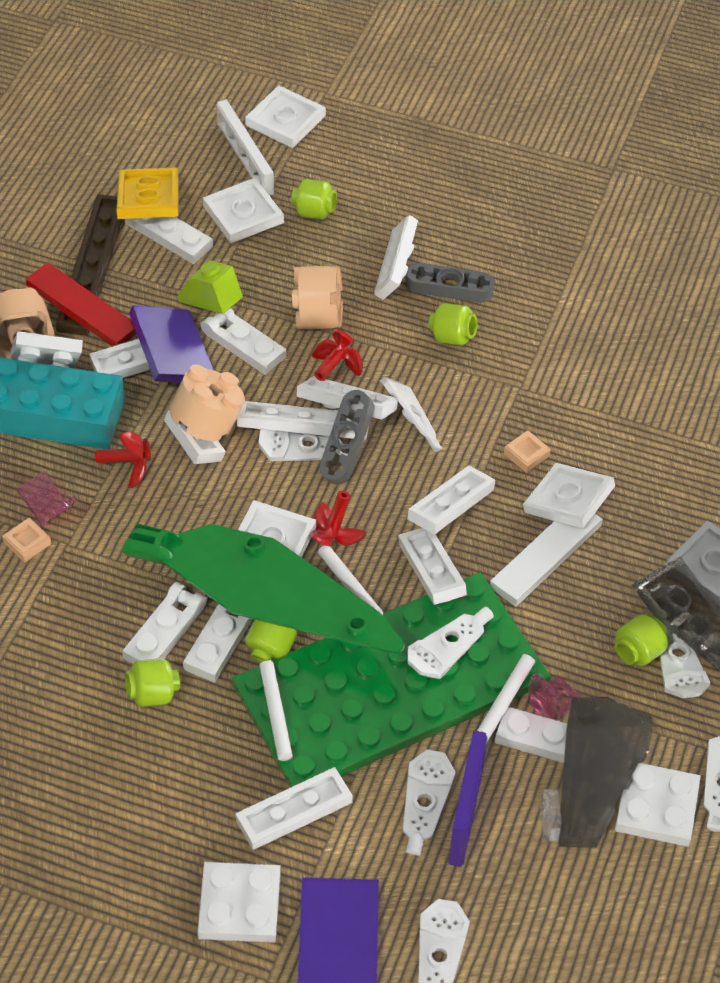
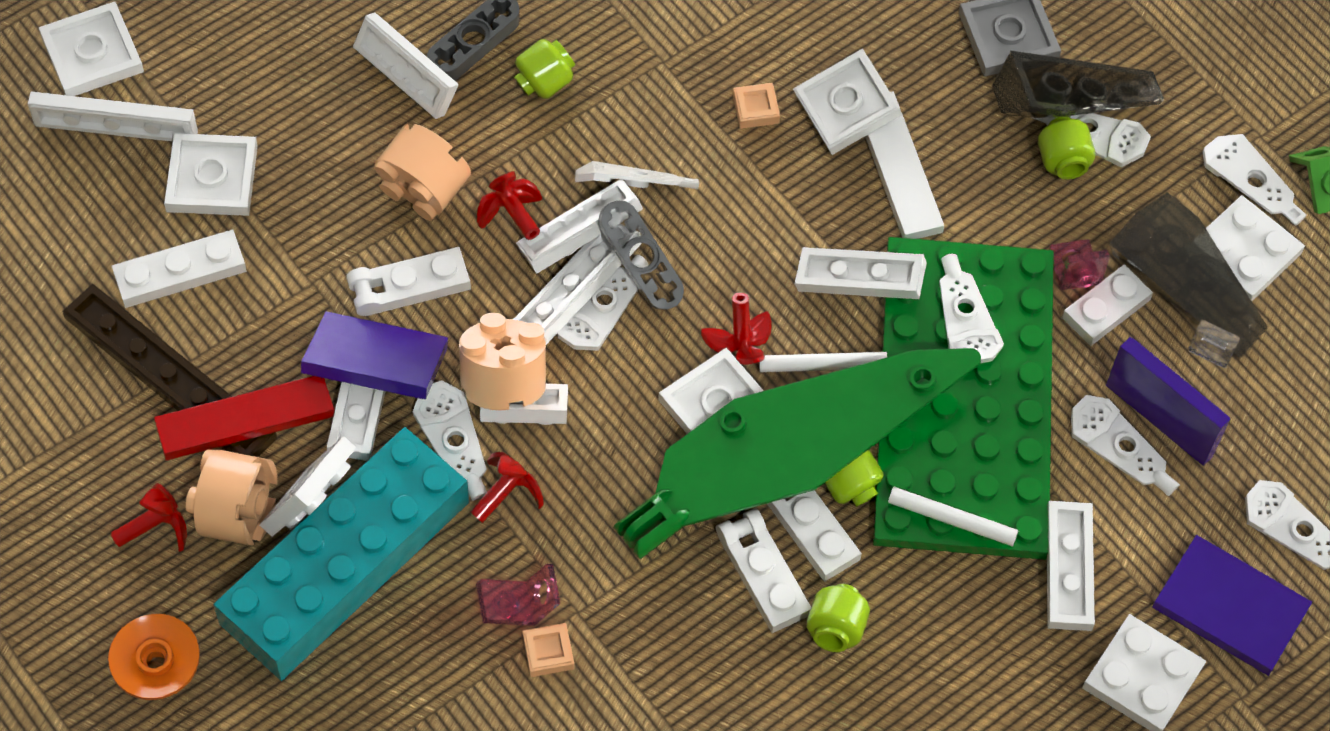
camera: 60 degrees left, 10 degrees up
(147, 193) = (113, 256): yellow tile -> none
(155, 406) = (451, 422): none -> white piece
(212, 288) = (322, 271): lime slope -> none
(314, 199) = (256, 93): lime head -> none
(451, 499) = (787, 207): white plate -> none
(506, 695) = (1064, 309): white bar -> none

